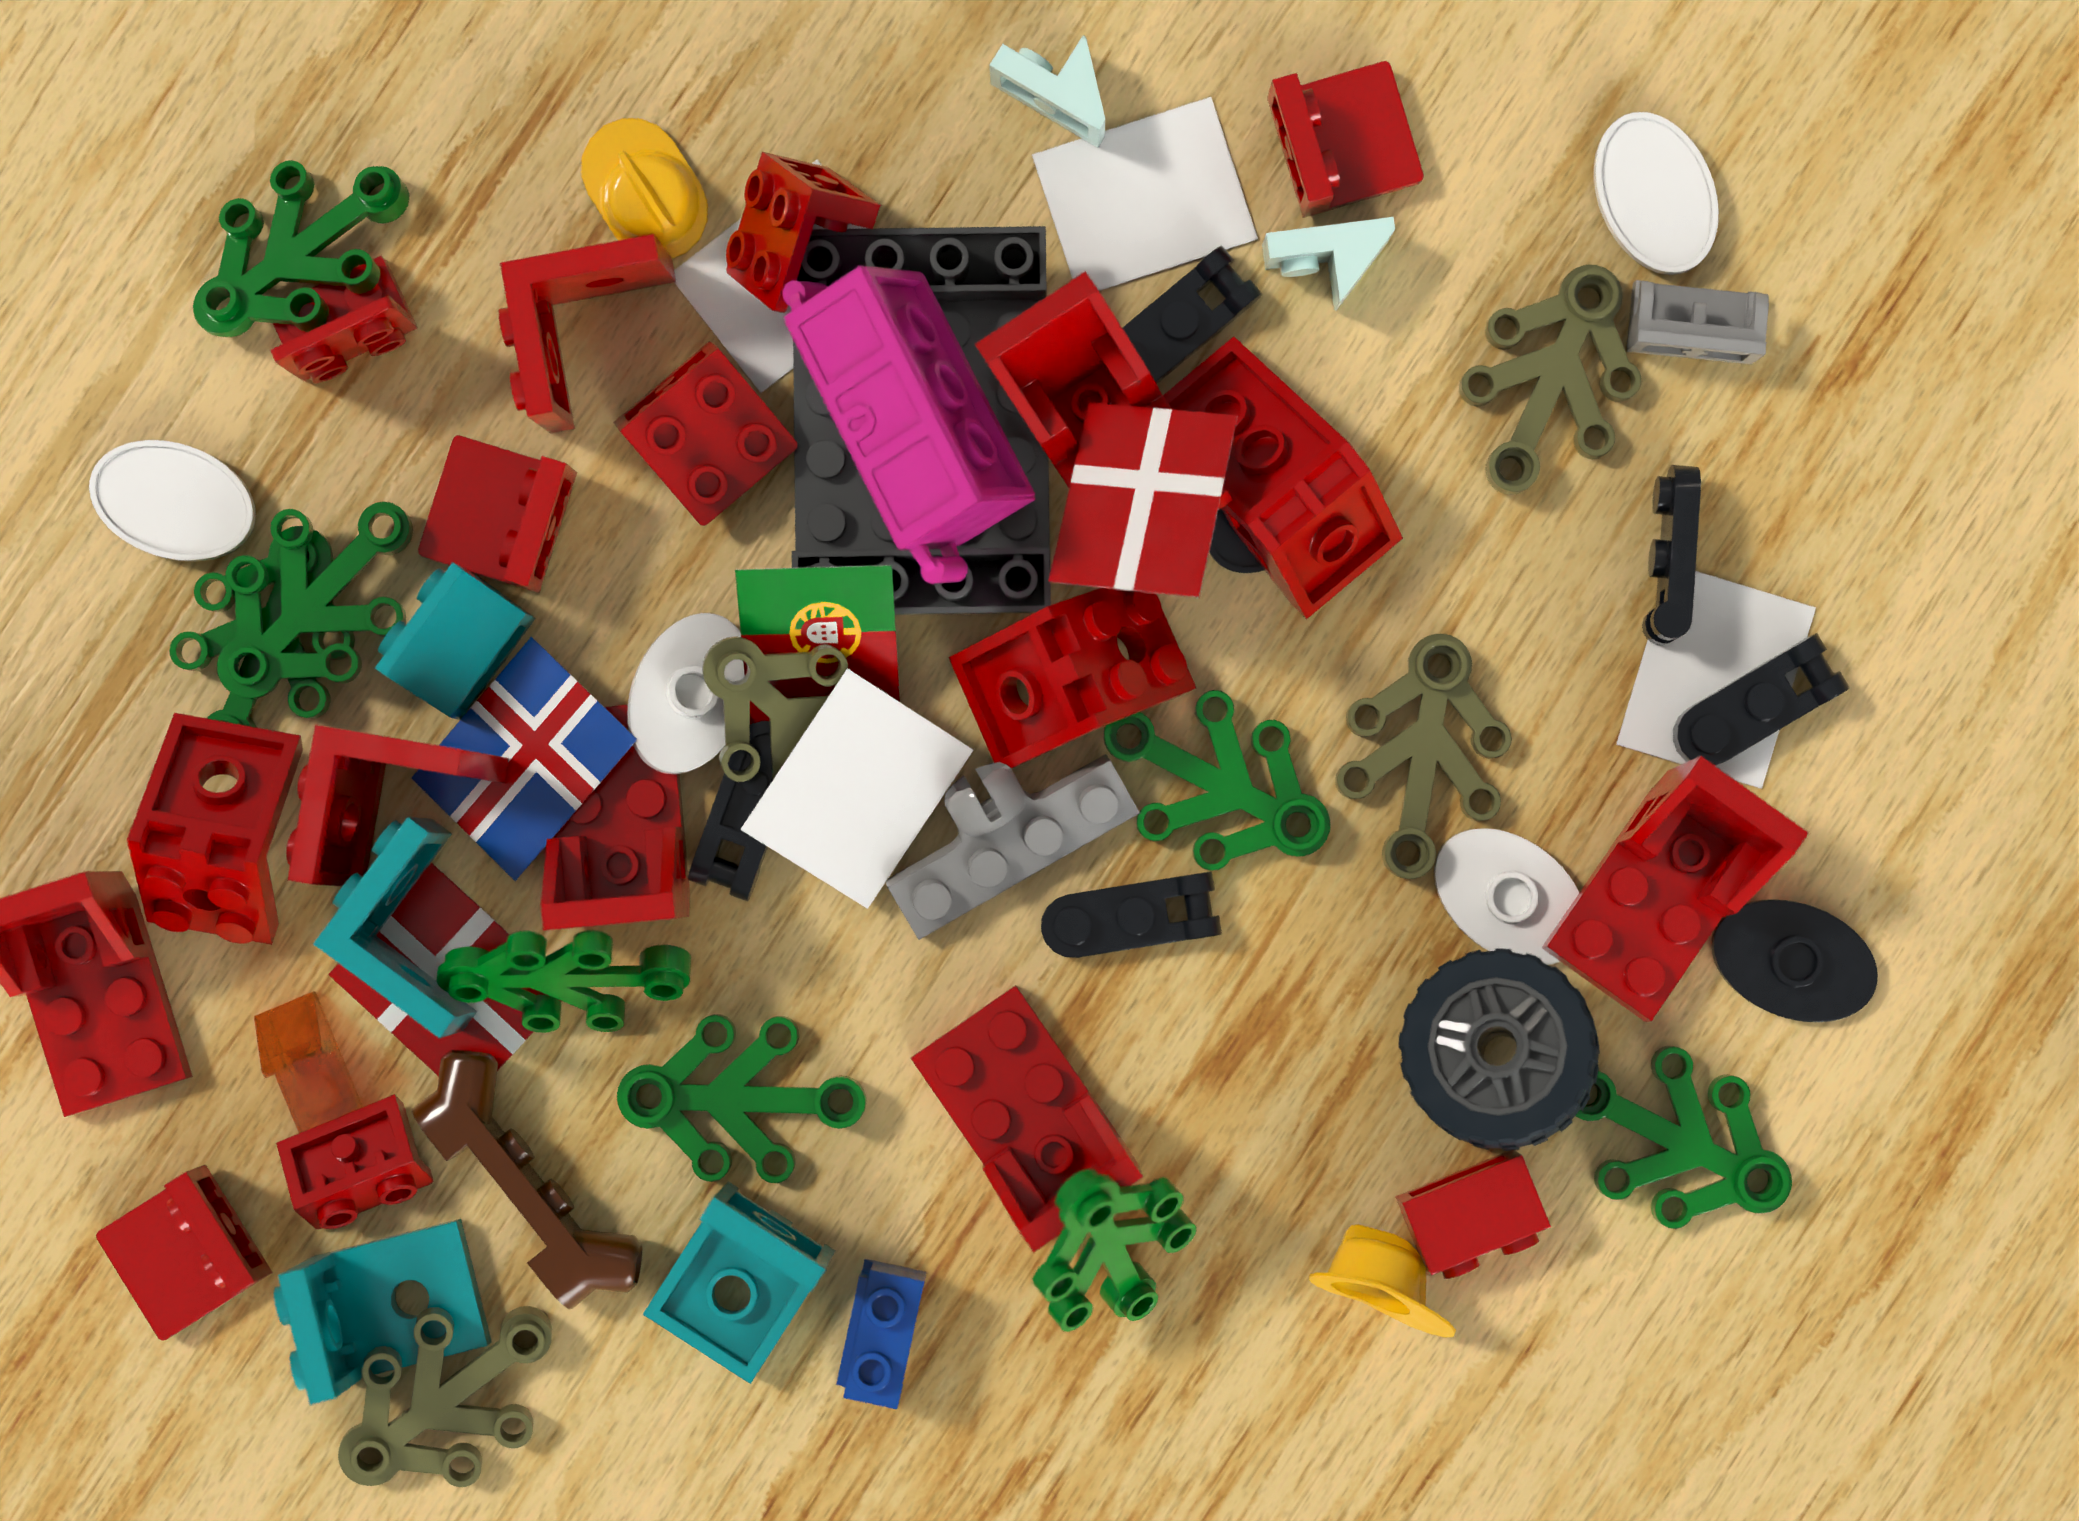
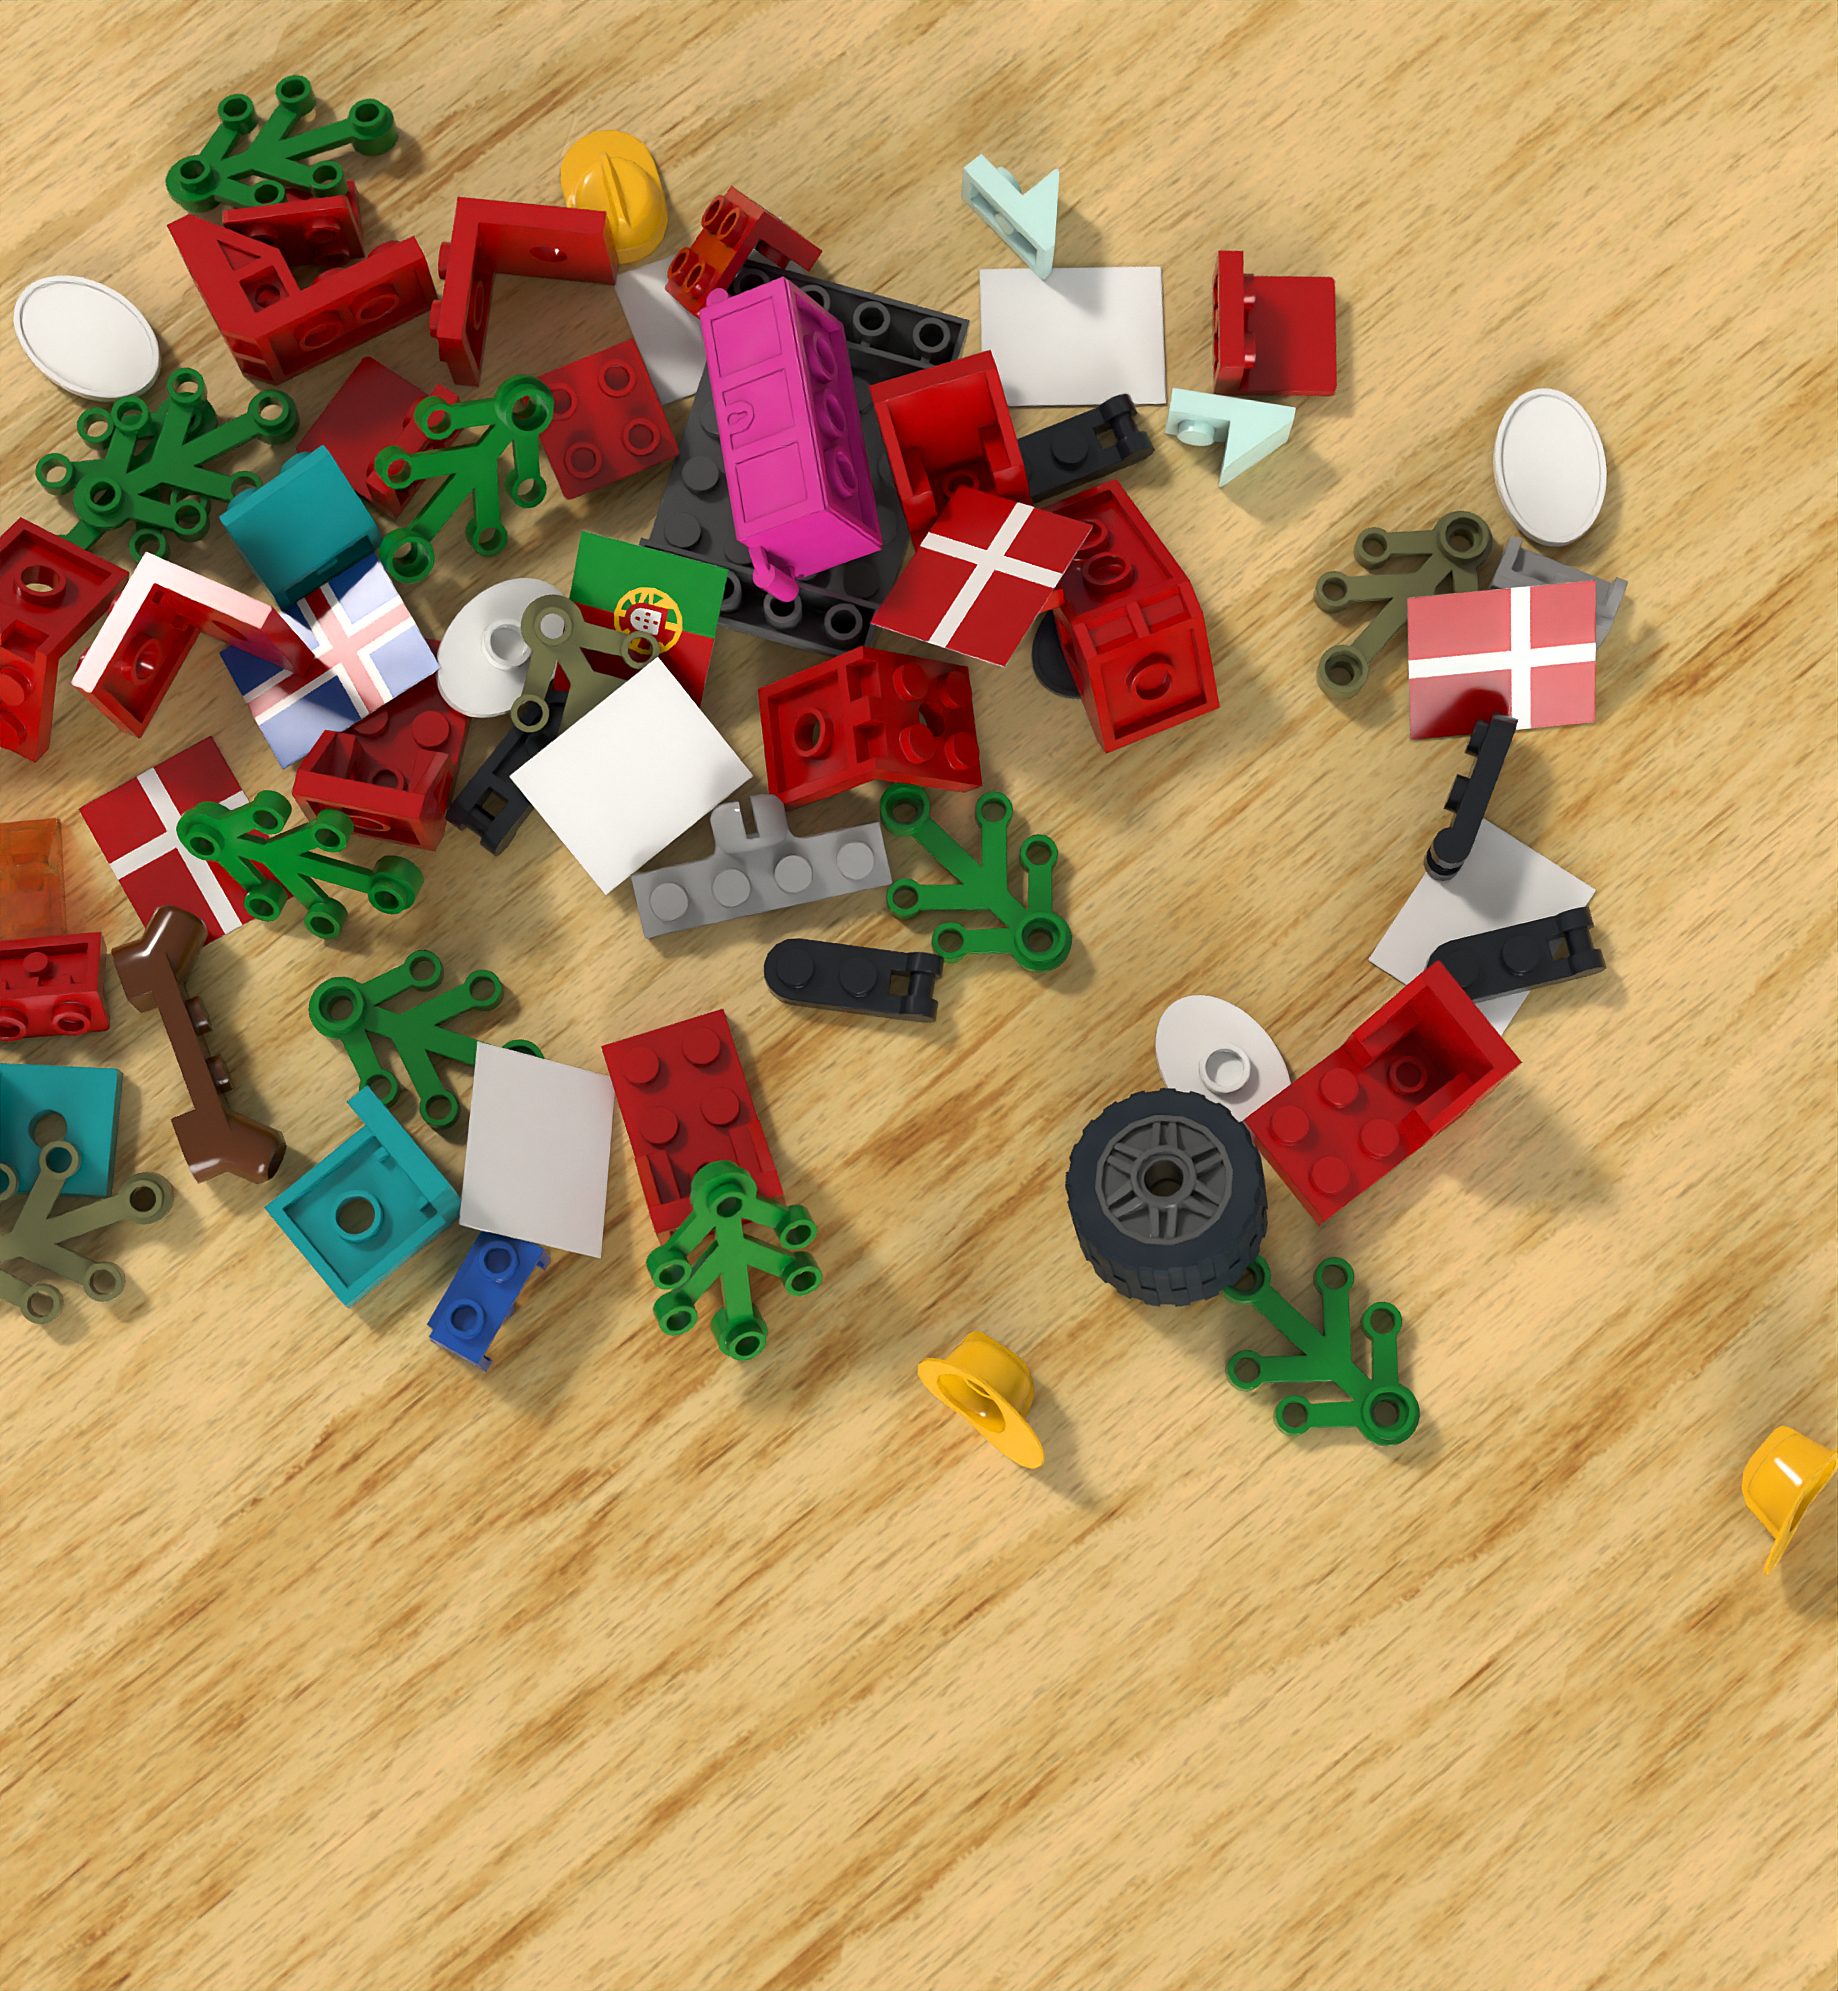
camera: 15 degrees right, 10 degrees down
(316, 408) = (286, 330): none -> red bracket
(367, 905) = (146, 738): teal bracket -> none
(597, 535) = (470, 469): none -> green plant
(886, 1185) = (537, 1151): none -> white sticker
(1426, 744) = (1185, 902): olive plant -> none
(1474, 1214) = (1097, 1357): red brick -> none
(1665, 409) = (1504, 653): none -> sticker
(1795, 961) = (1481, 1214): black piece -> none

